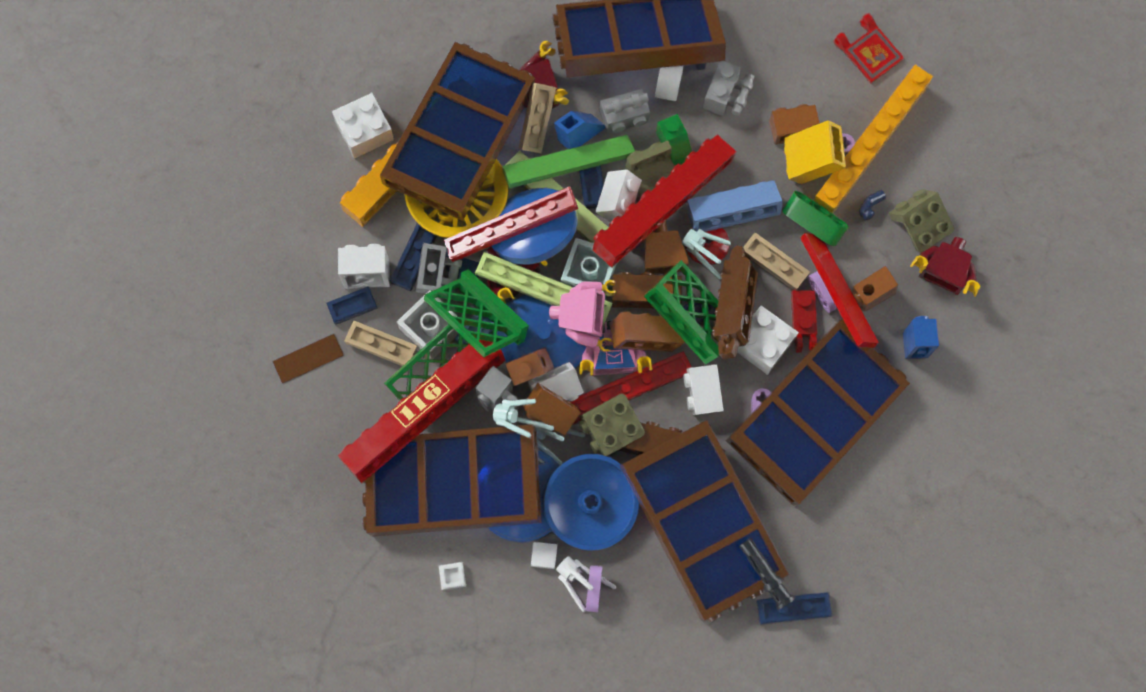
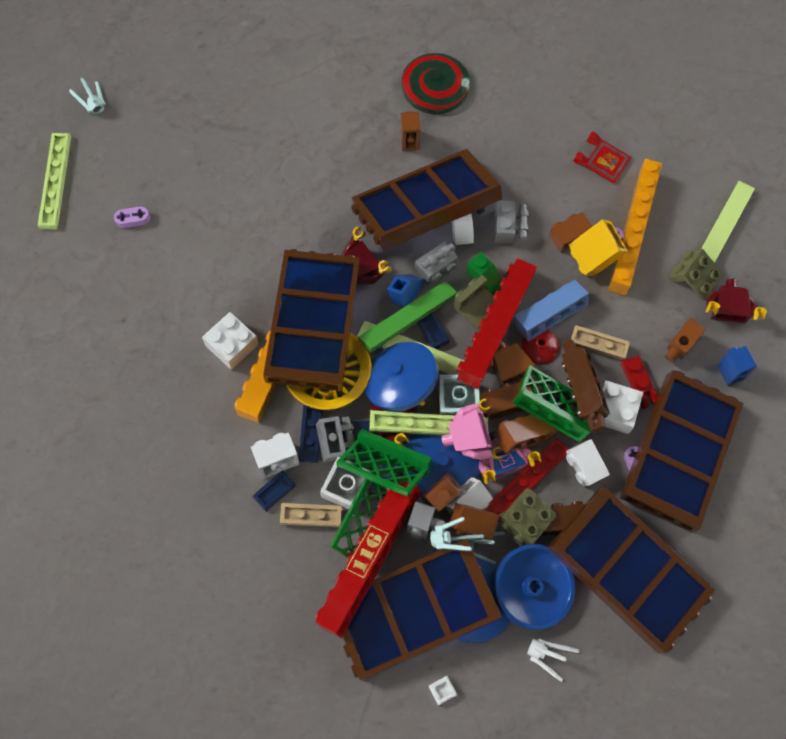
camera: 20 degrees left, 5 degrees down
(308, 358) = (252, 547): reddish brown sticker -> none
(511, 224) = (385, 380): tile -> none
(537, 118) = (370, 290): tan plate -> none
(544, 555) = (511, 645): white tile -> none
(593, 595) = (566, 667): lavender beam -> none
(617, 194) = (458, 330): white brick -> none
(695, 242) = (532, 348): light aqua plant -> none
(772, 582) = (707, 601): black pin -> none
(801, 608) = (727, 616): dark blue tile -> none
(815, 218) = (617, 299): green beam -> none
(821, 292) = (646, 353): lavender beam -> none
(839, 291) = (661, 349): red tile -> none
(871, 200) = (652, 272): dark blue arm -> none
(986, 169) = (727, 220): none -> yellowish green tile

